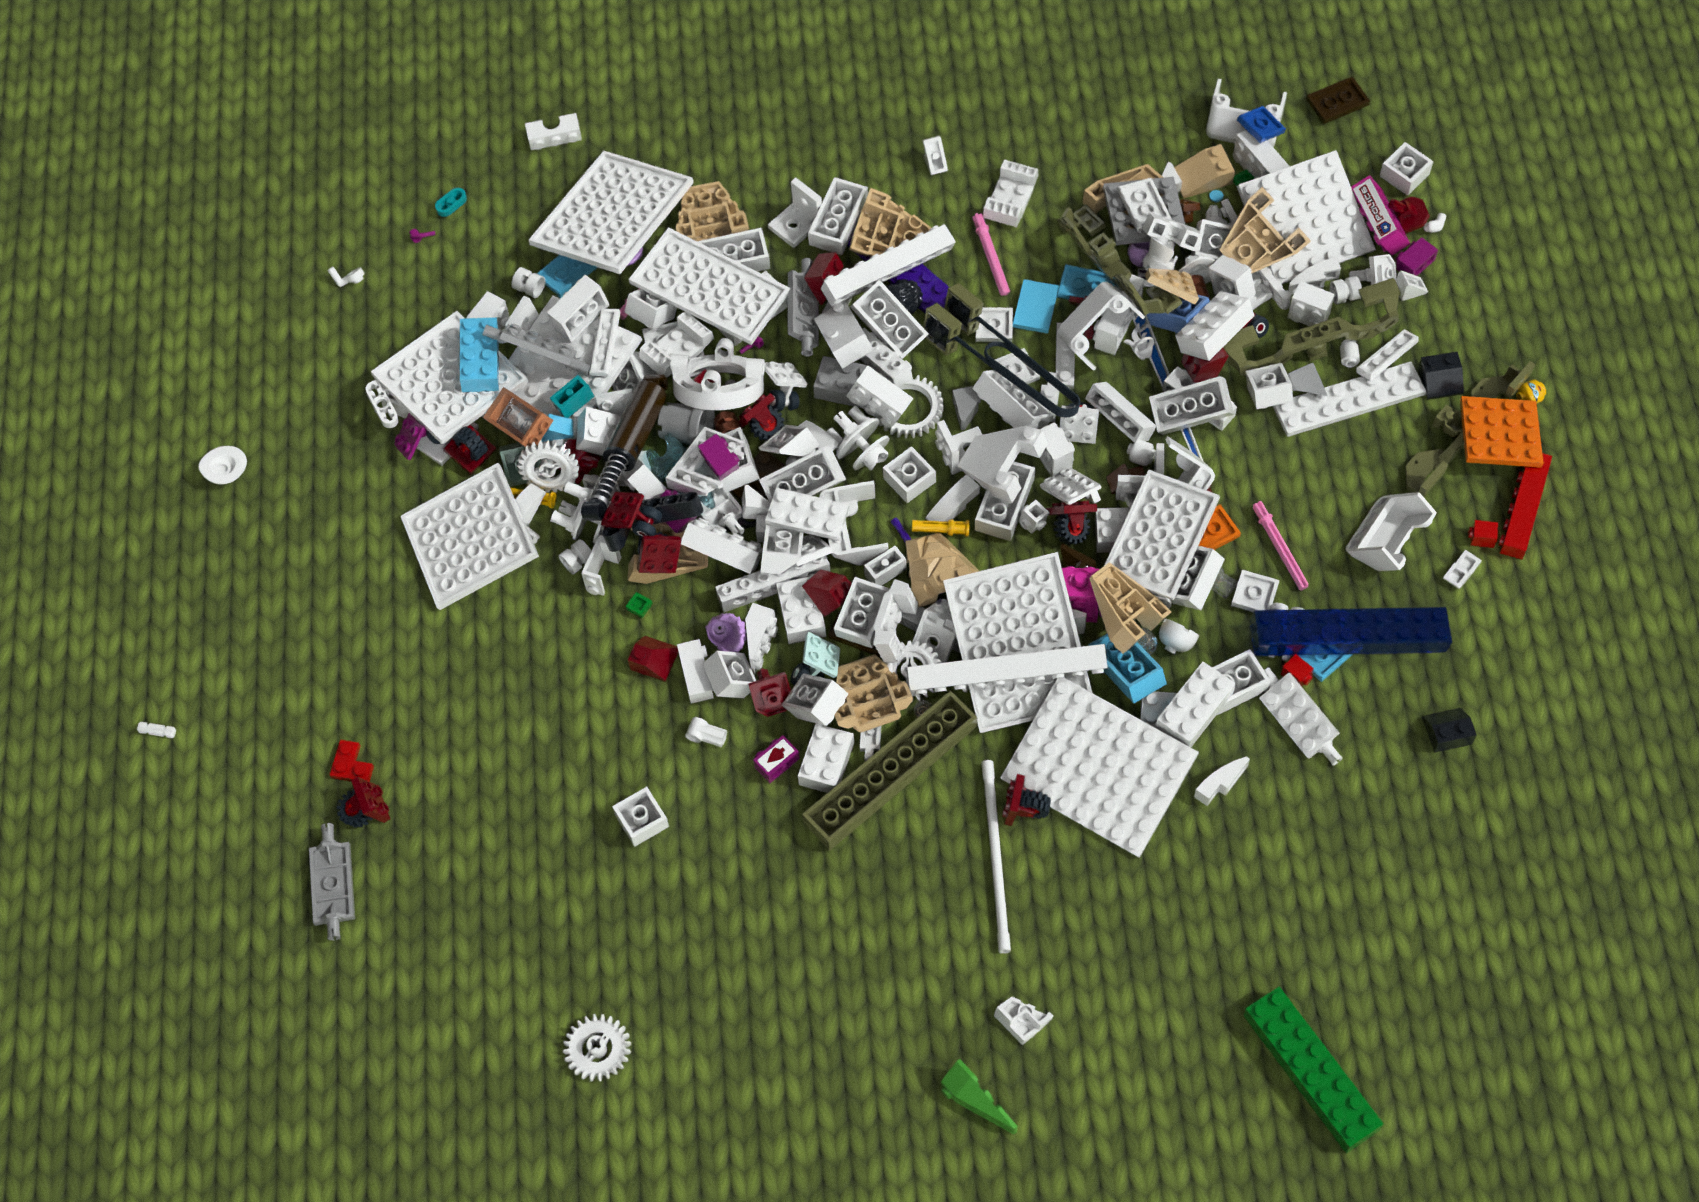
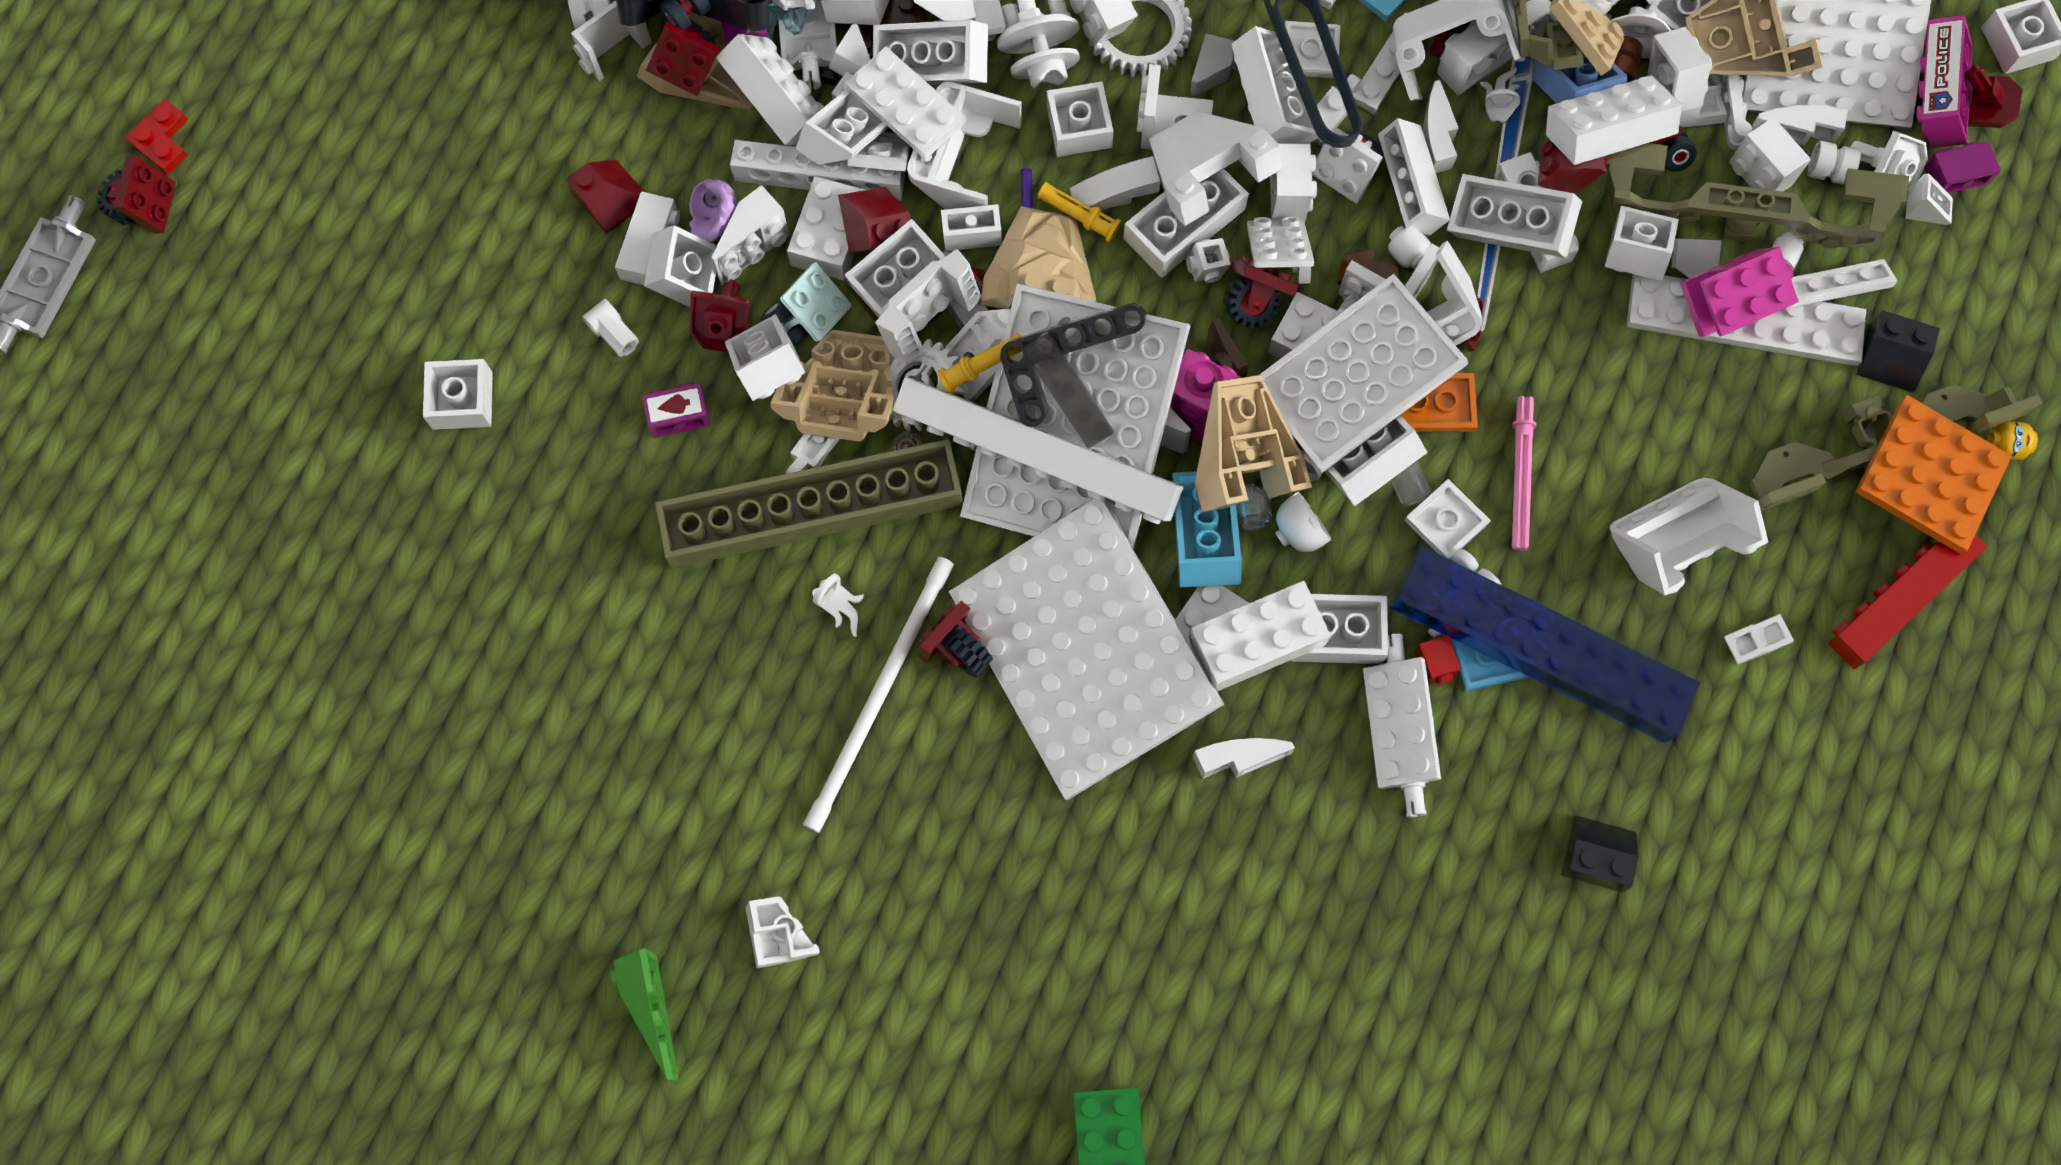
camera: 25 degrees right, 10 degrees up
(584, 1063) = (206, 654): white gear -> none
(639, 605) = (631, 115): green plate -> none
(826, 758) = (738, 443): white brick -> none
(938, 817) = (835, 599): none -> white piece
(941, 644) = (970, 368): none -> yellow pin
(992, 601) = (1089, 338): none -> black beam
(1010, 623) = (1068, 389): none -> clear smoke tile
(1117, 377) = (1440, 129): none -> white slope
(1339, 385) = (1739, 291): none -> dark pink torso
(1435, 225) = (2018, 135): white arm -> none
(1483, 533) = (1820, 605): red brick -> none

